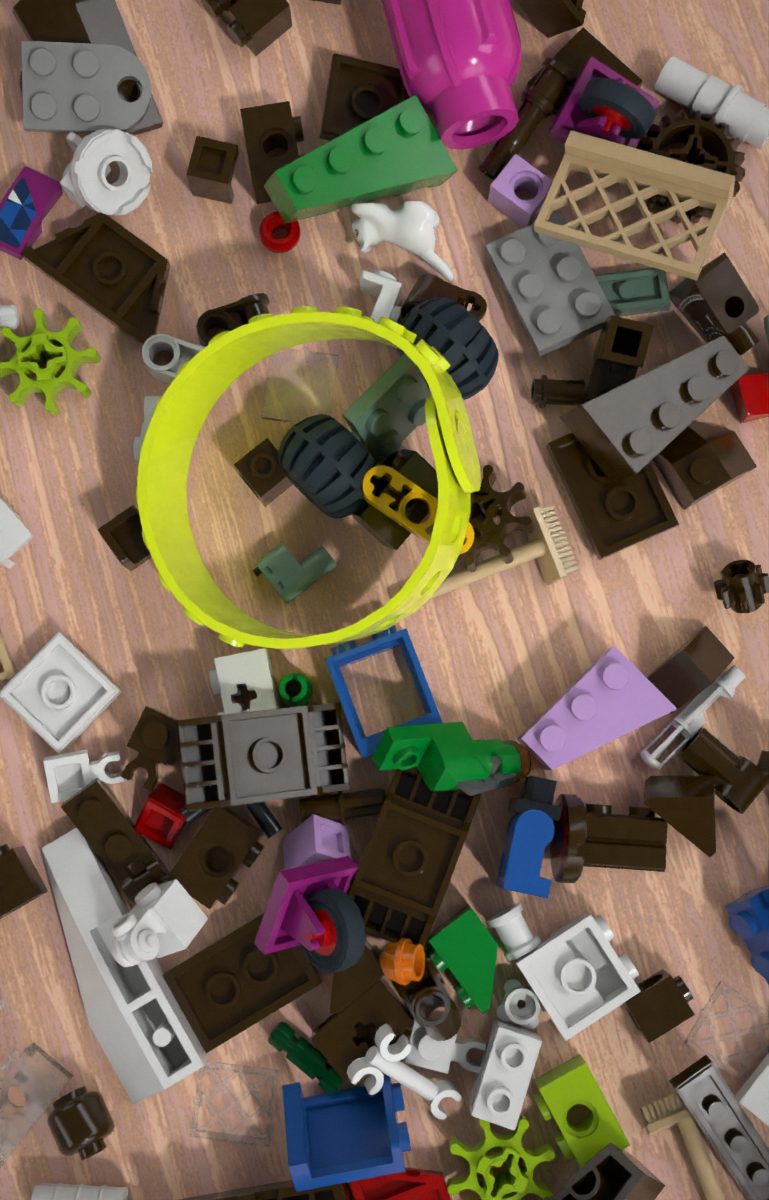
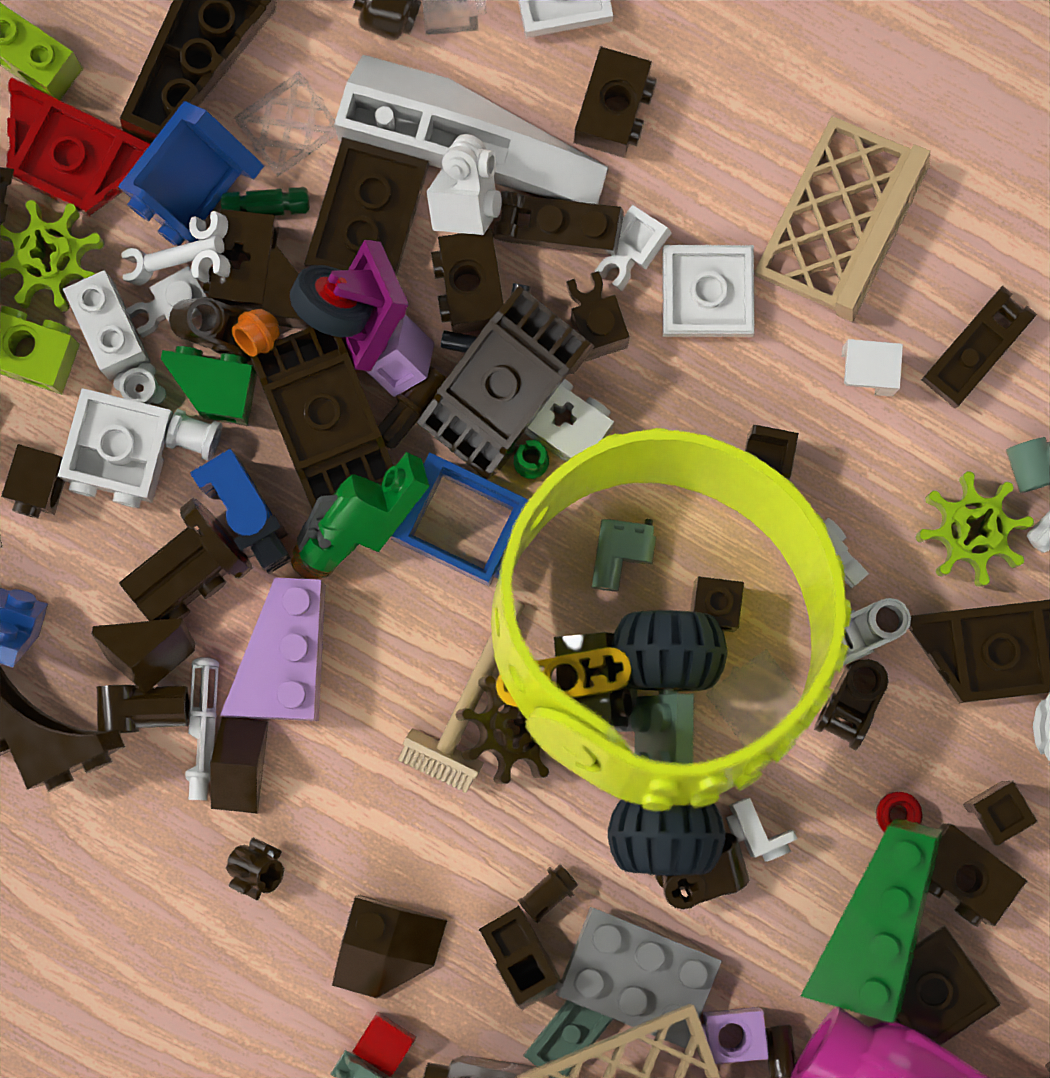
camera: 135 degrees right, 0 degrees up
(161, 816) = (541, 272): red slope -> none
(409, 227) = (796, 914): white animal -> none
(610, 512) = (434, 856): dark brown plate -> none
(647, 413) = (456, 942): wedge -> none

